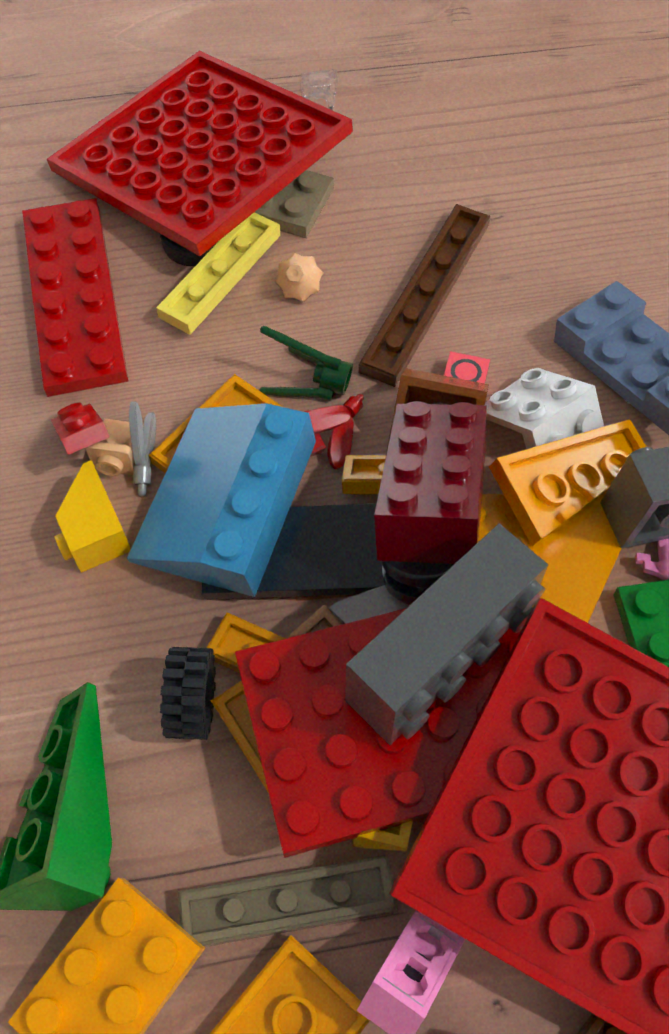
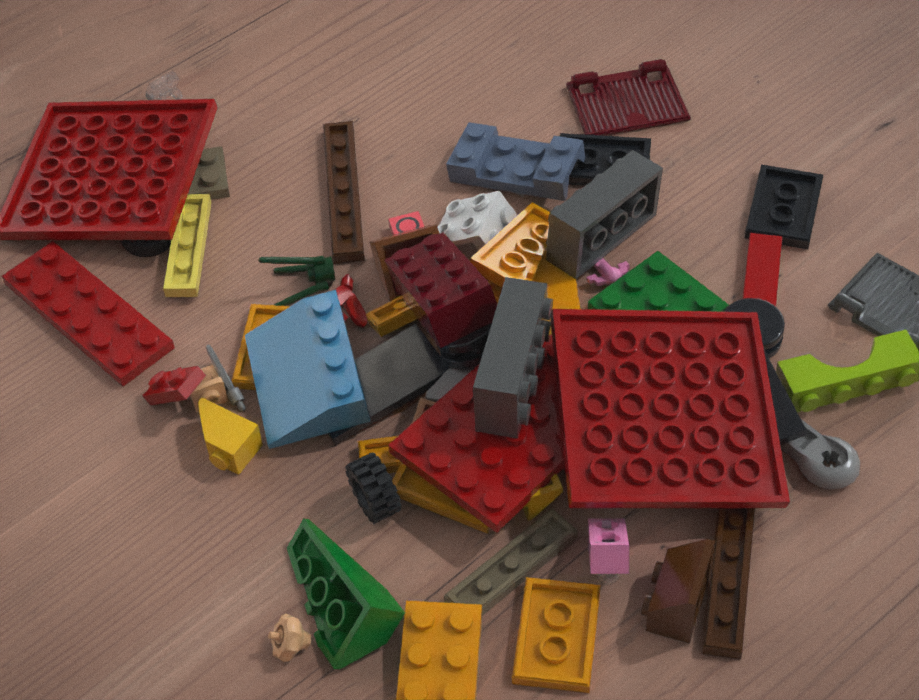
camera: 30 degrees left, 10 degrees down
(299, 276) = (248, 222): light nougat piece -> none

